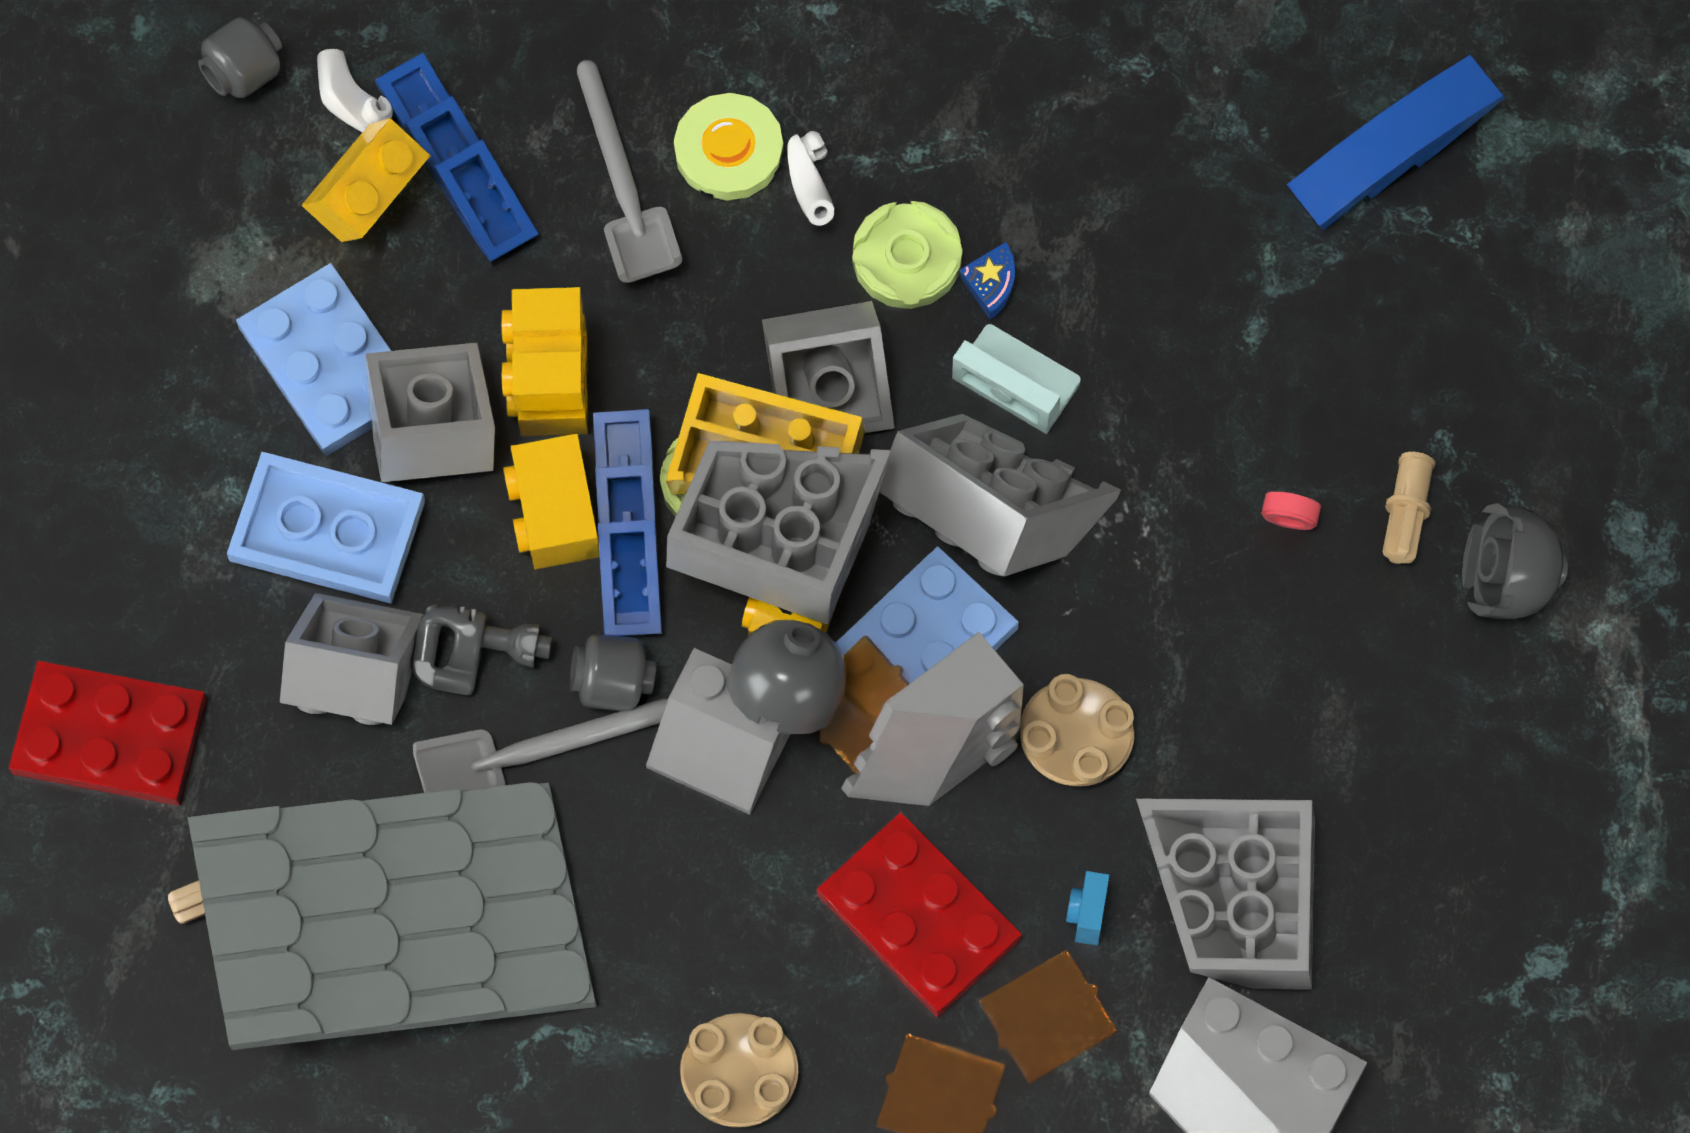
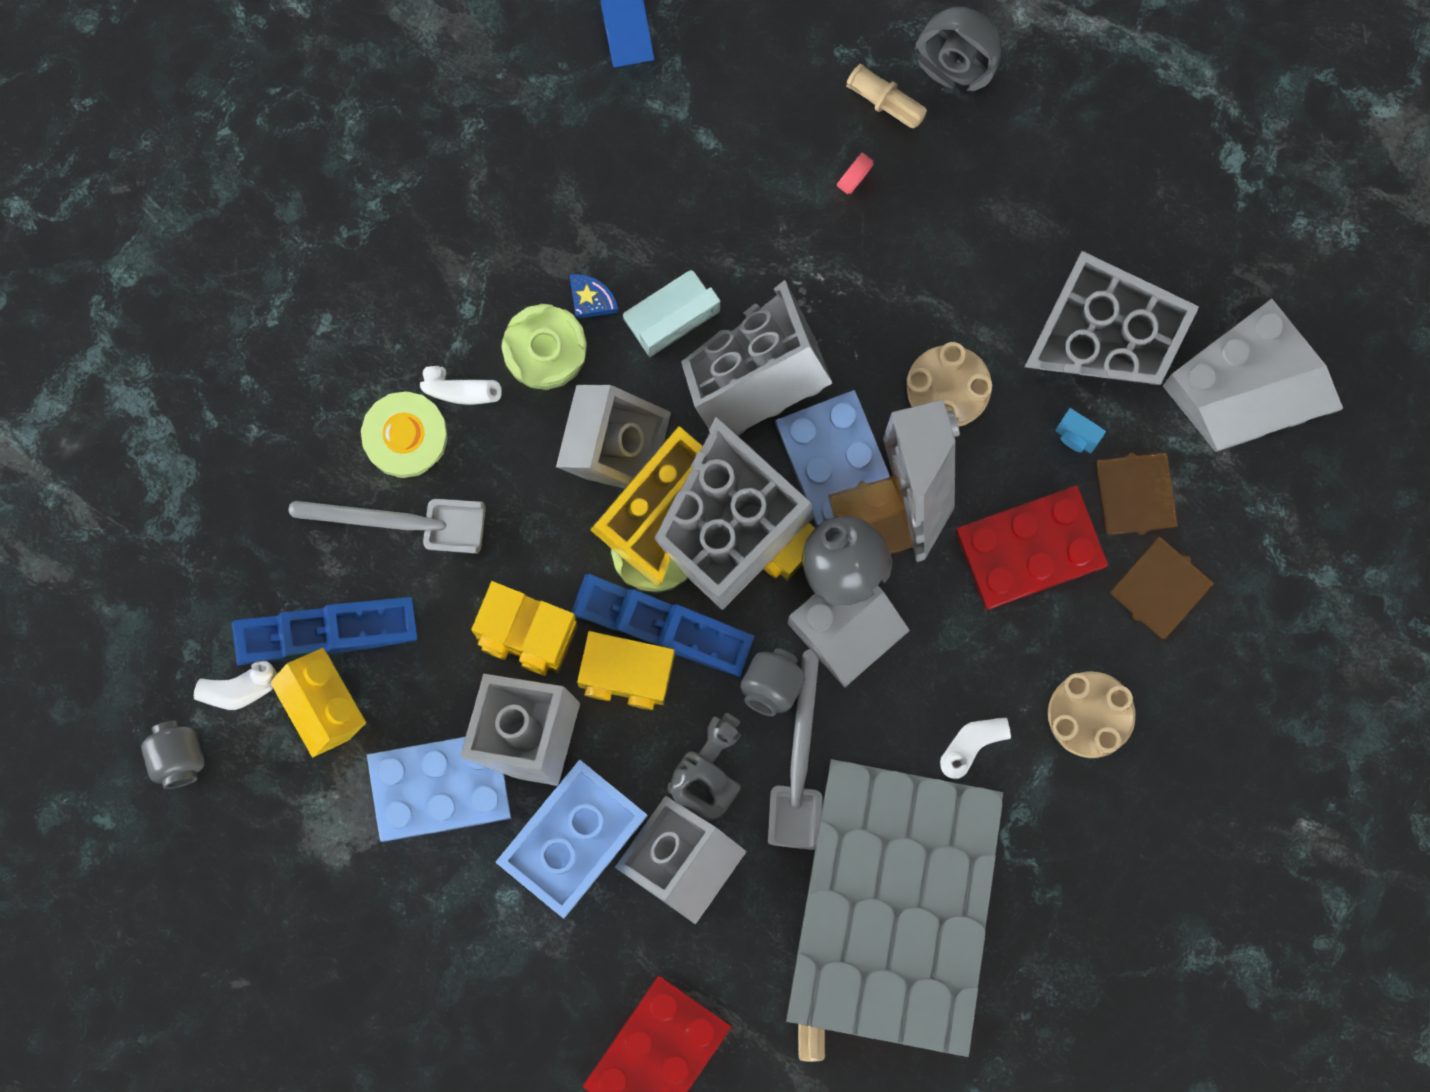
camera: 70 degrees left, 10 degrees up
(640, 936) = (969, 741): none -> white arm

